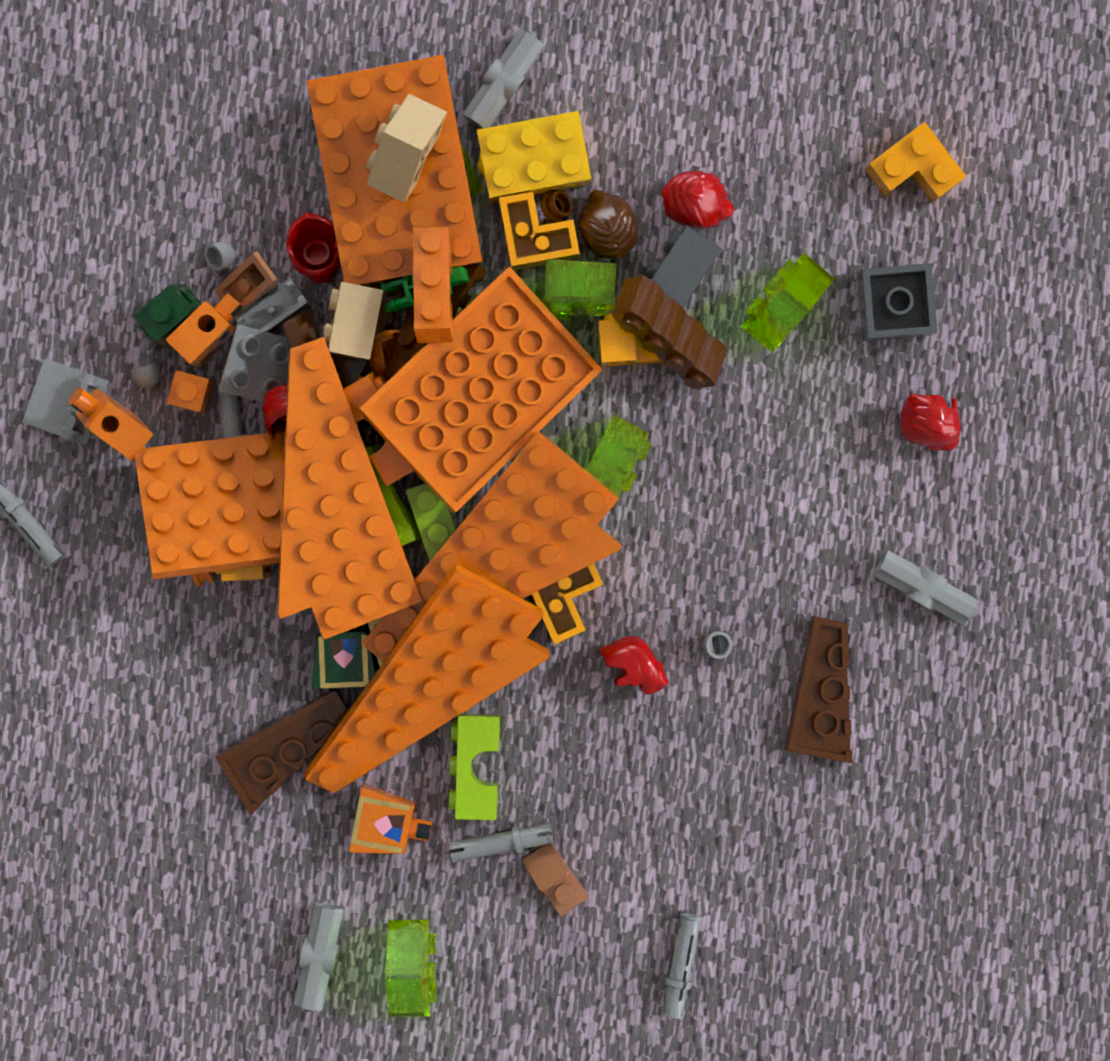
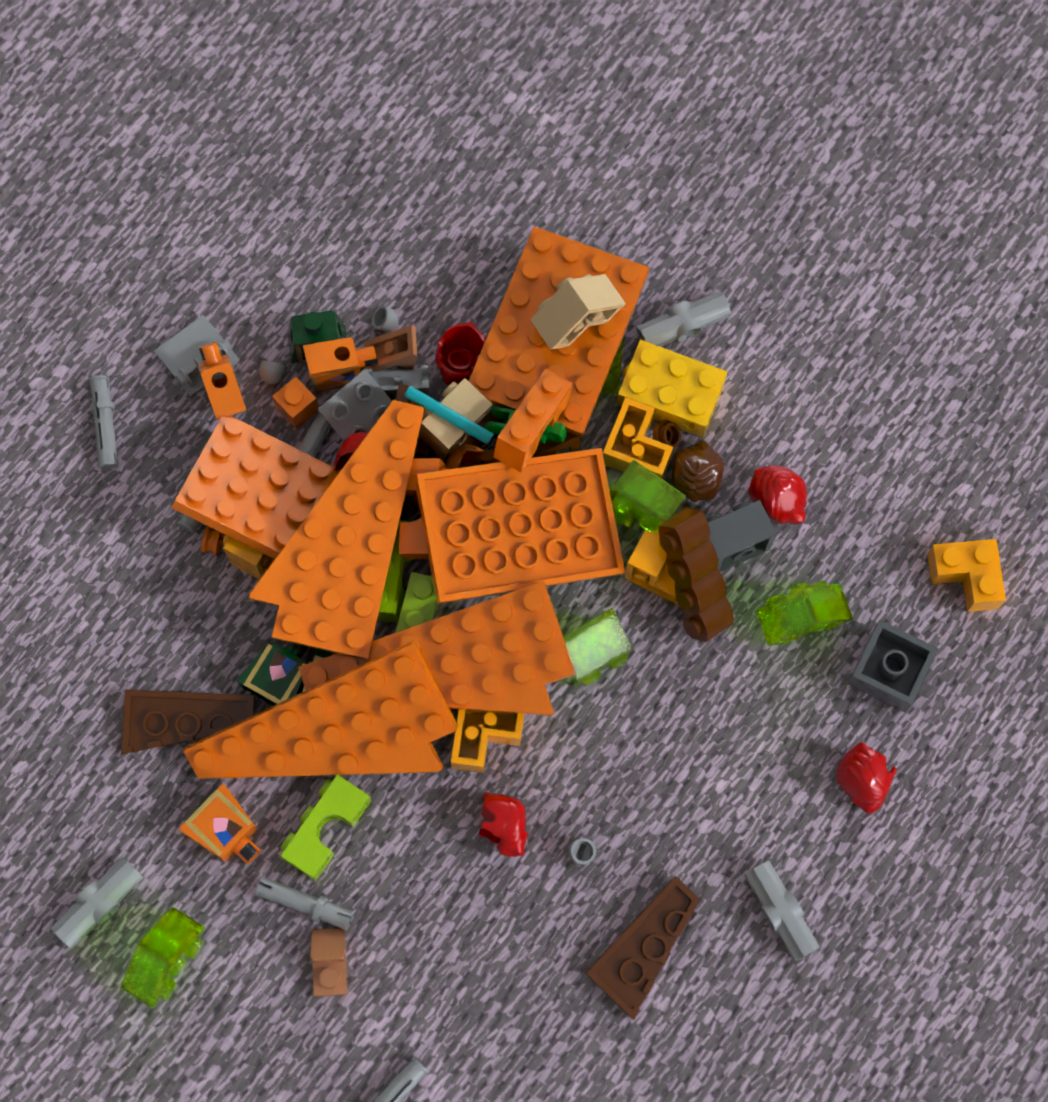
camera: 30 degrees right, 15 degrees down
(350, 328) = (448, 415): none -> teal bar

